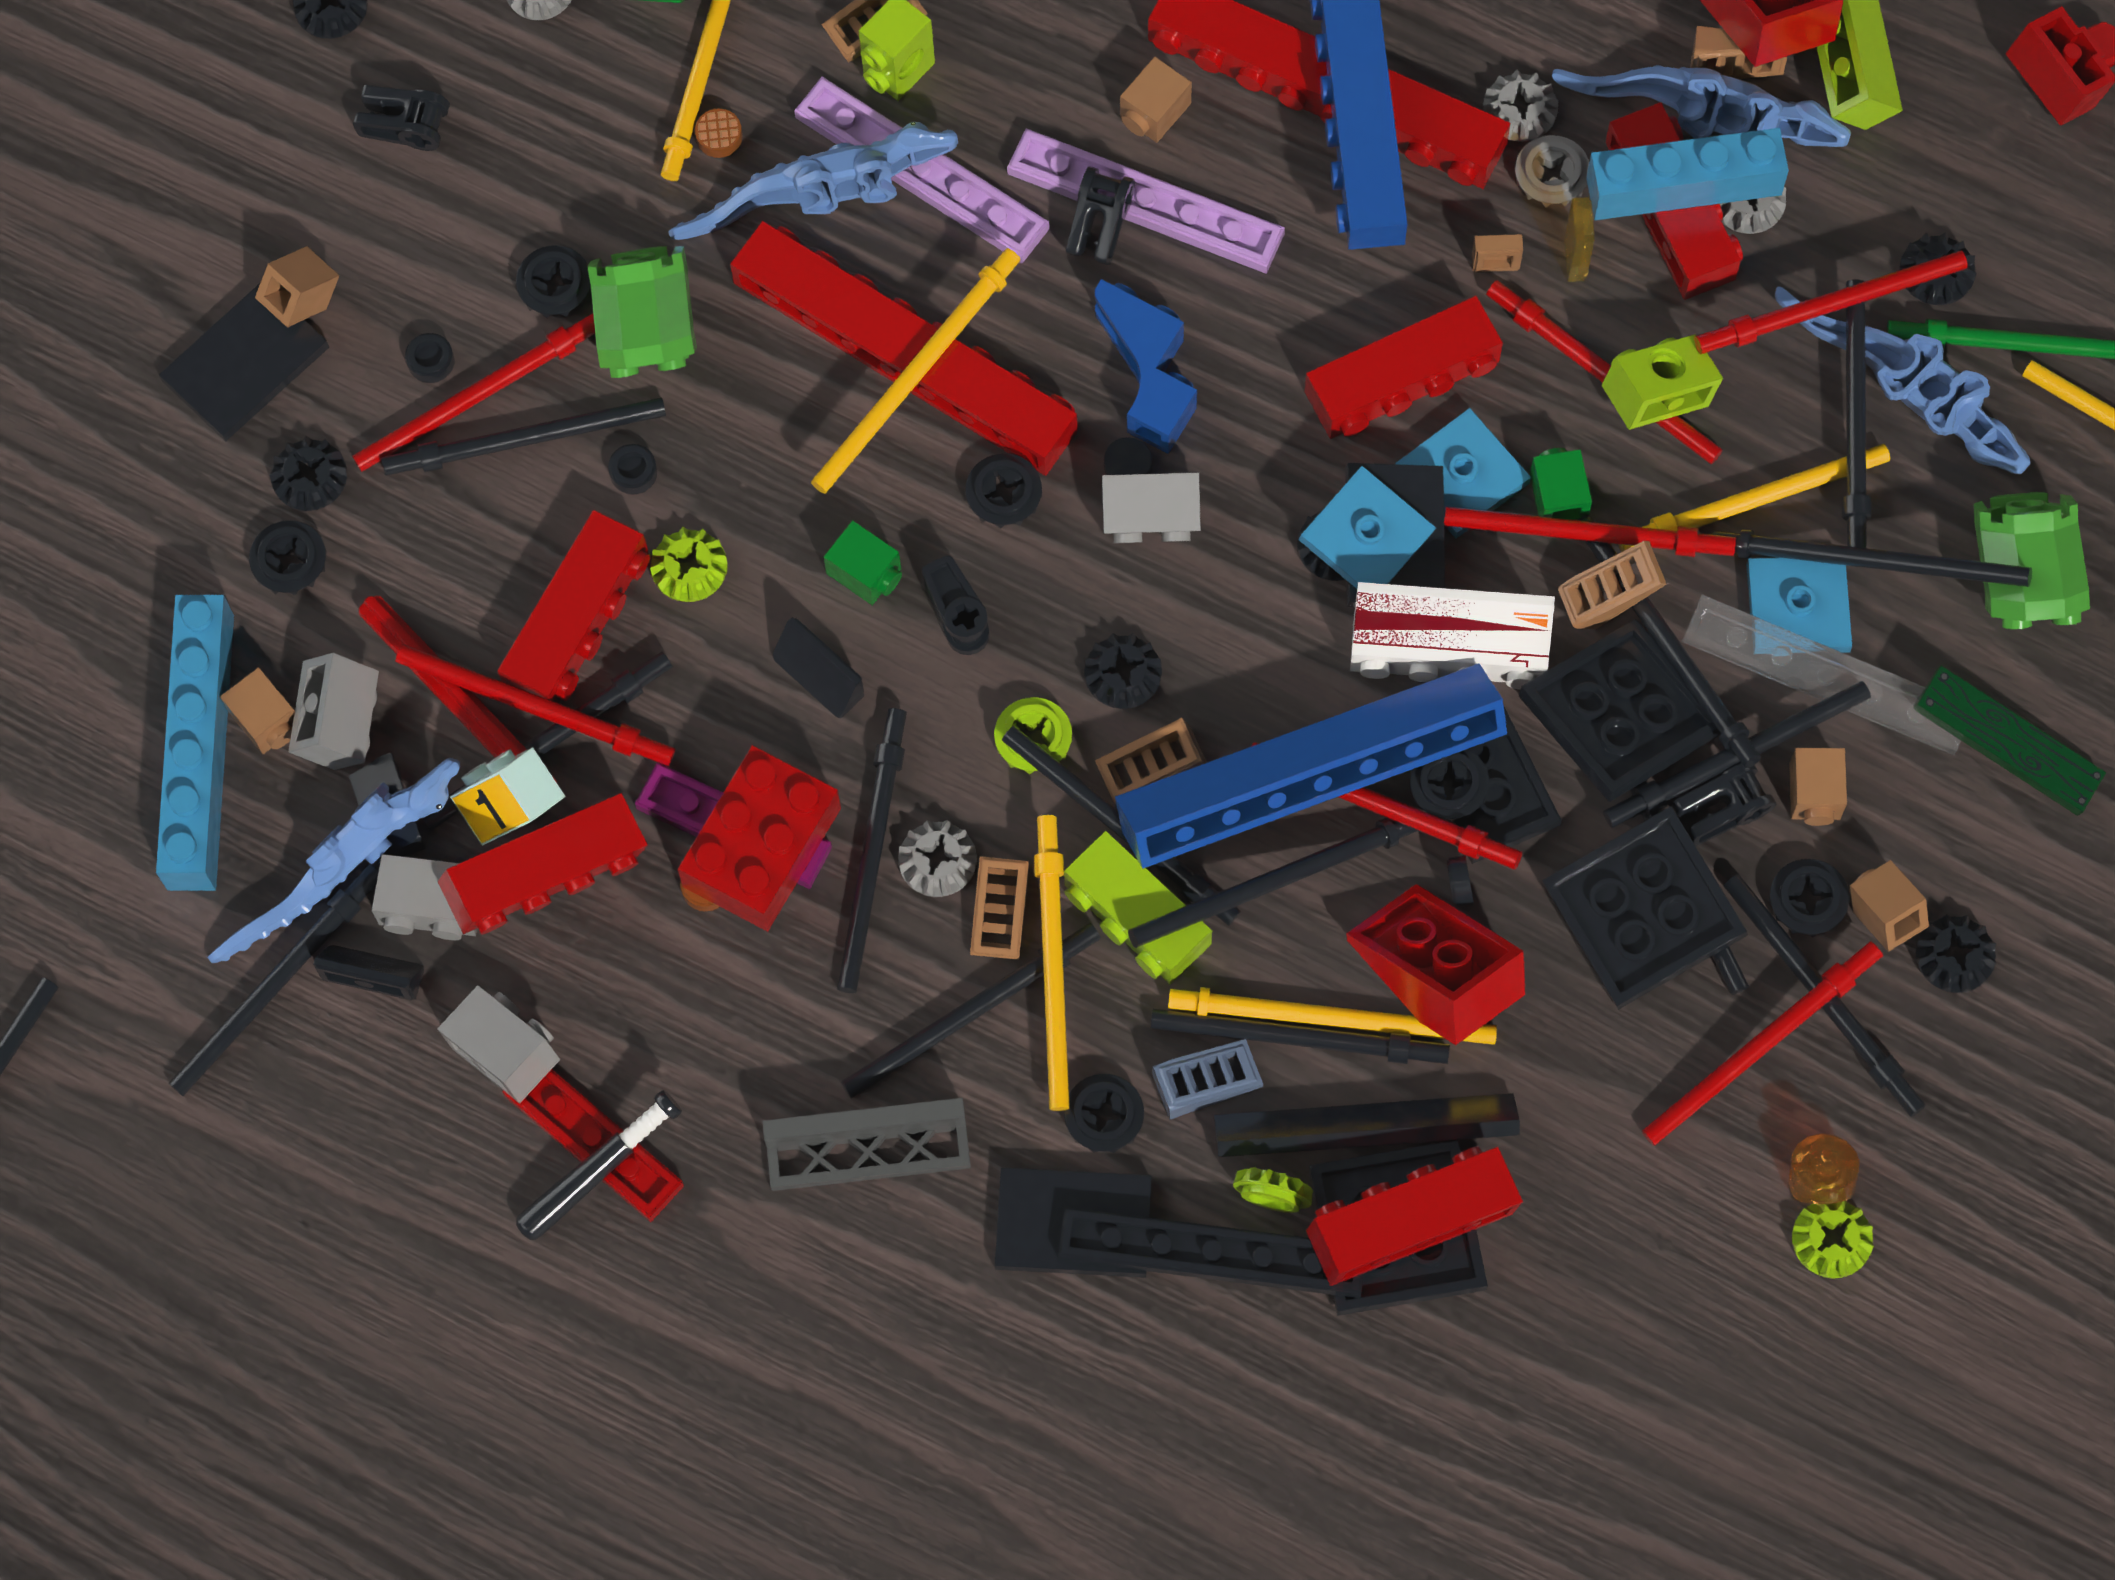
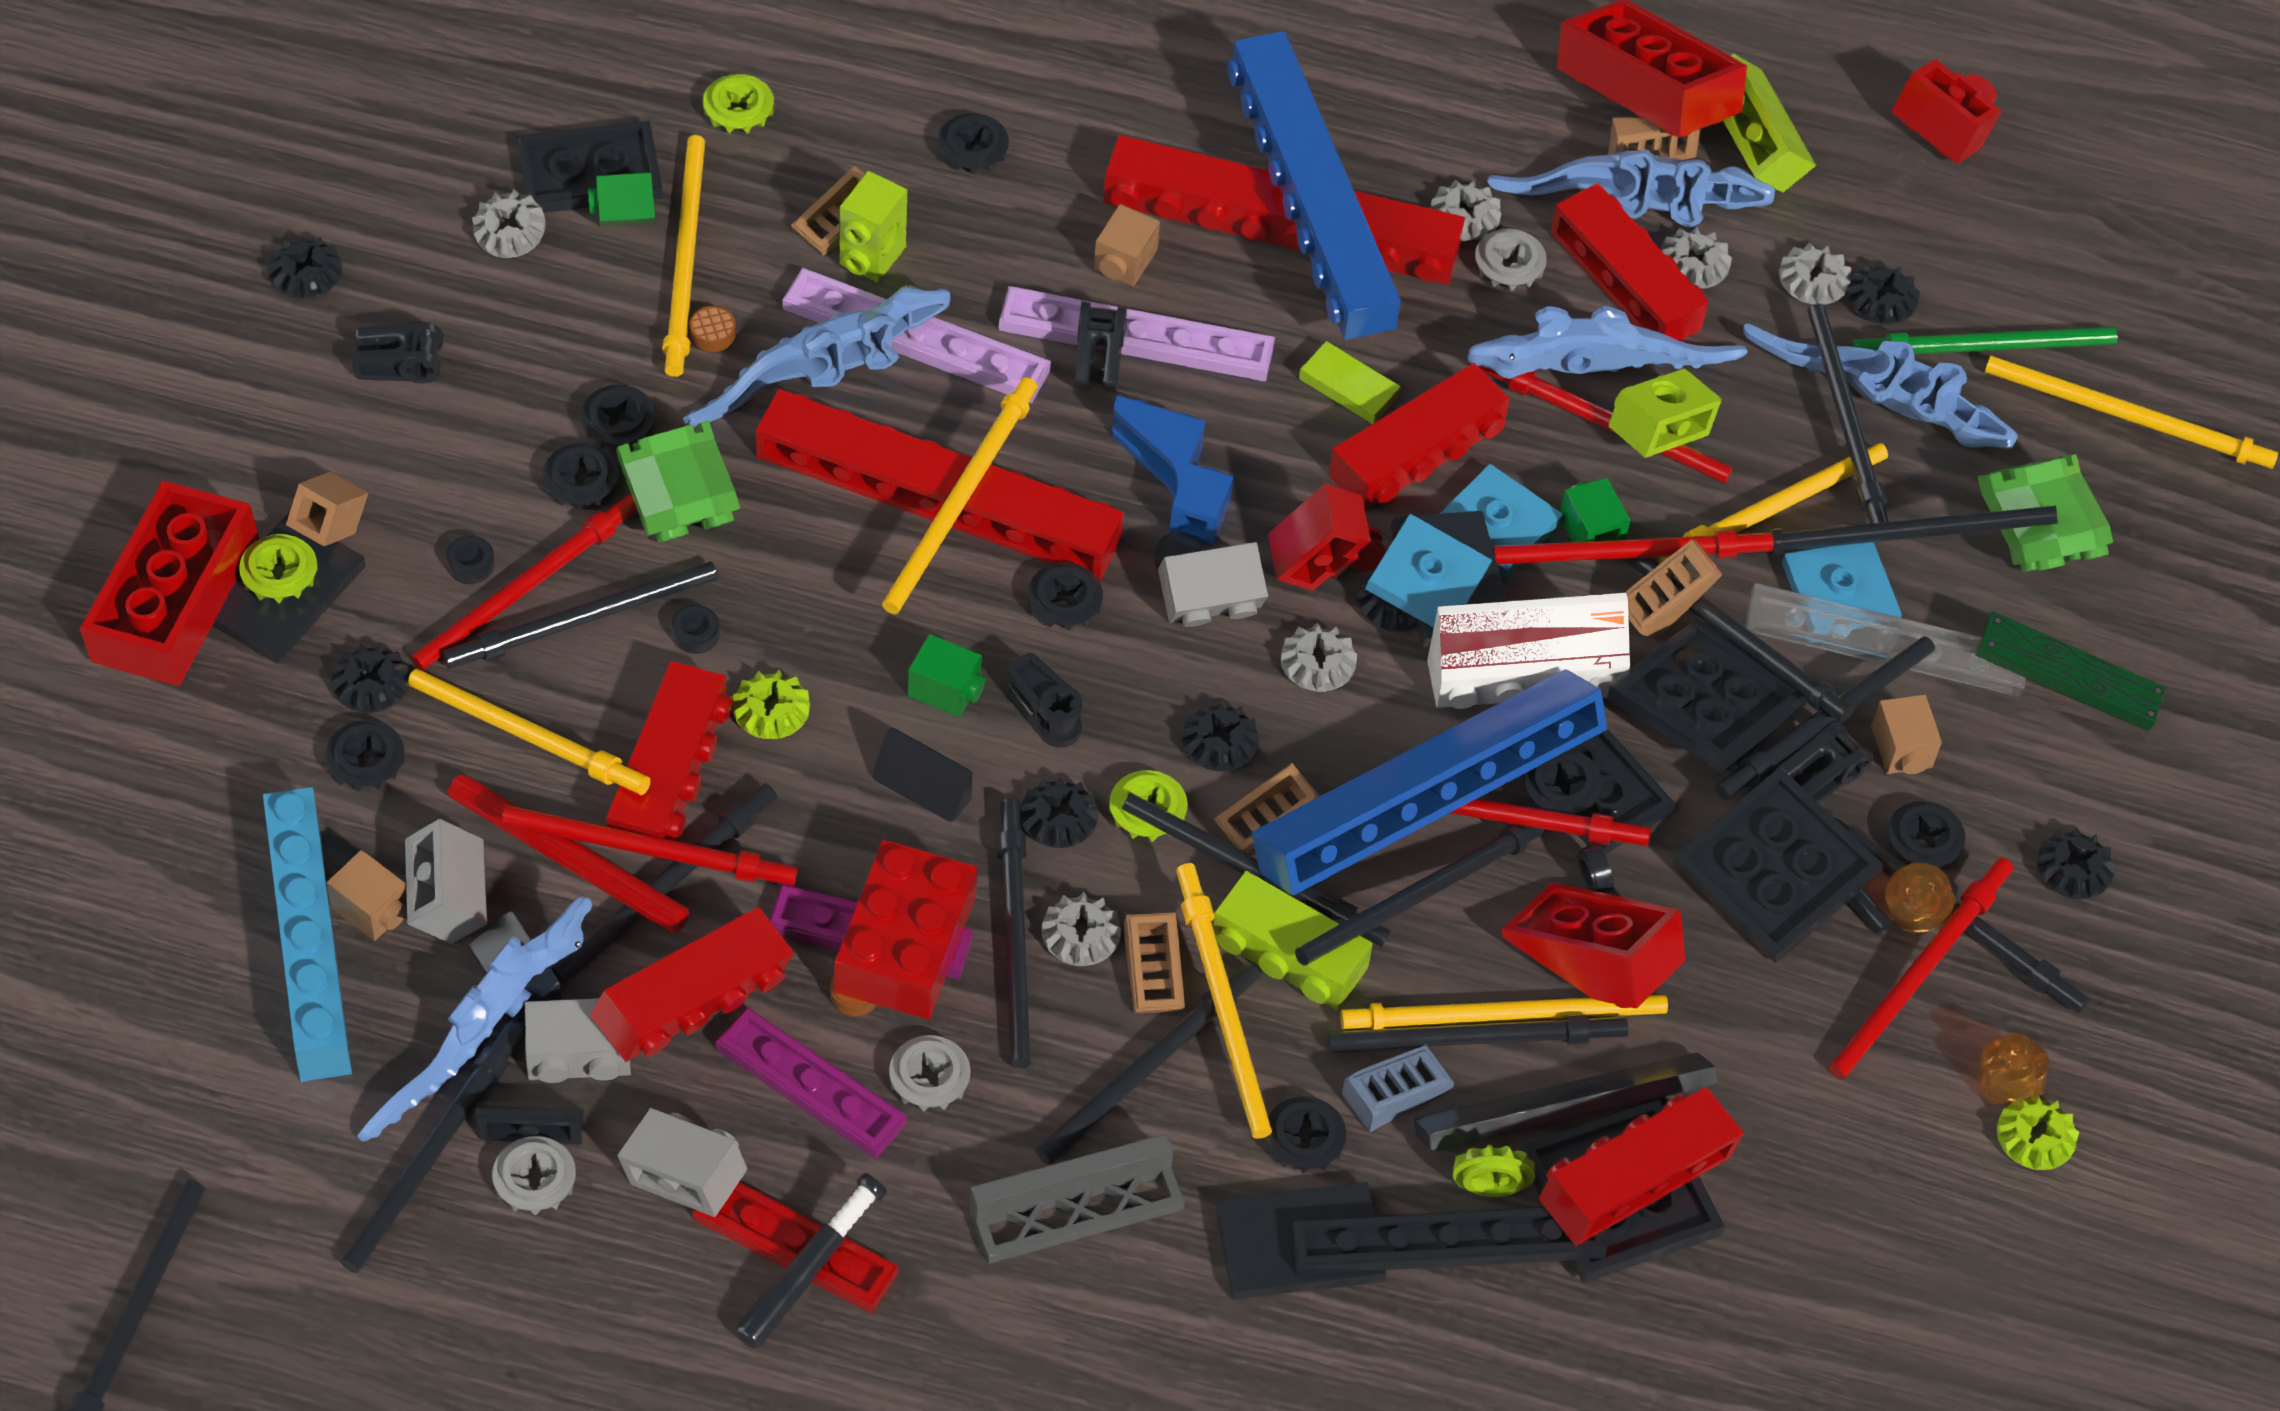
camera: 20 degrees left, 15 degrees down
(132, 346) = (169, 583): none -> red brick
(225, 330) = (260, 561): none -> lime gear
(348, 1011) = (515, 1163): none -> light grey gear
(502, 614) = (600, 765): none -> yellow bar
(506, 794) = (643, 925): brick -> none
(601, 201) = (611, 402): none -> black gear
(642, 976) = (811, 1083): none -> magenta tile
(737, 974) = (939, 1055): none -> light grey gear
(944, 749) = (1062, 830): none -> black gear
(1257, 614) = (1302, 667): none -> light grey gear
(1273, 475) = (1325, 539): none -> red brick
(1350, 290) = (1349, 382): none -> lime tile
(1497, 253) = (1478, 327): medium nougat tile -> none
(1579, 239) = (1557, 287): clear yellow tile -> none
(1603, 292) = (1592, 345): none -> medium blue animal
(1687, 173) = (1642, 231): dark azure brick -> none
(1745, 329) = (1733, 354): red bar -> none
(1780, 969) = (1920, 897): none -> clear orange piece
(1878, 253) = (1825, 288): none -> light grey gear
(1889, 905) = (2005, 826): medium nougat brick -> none

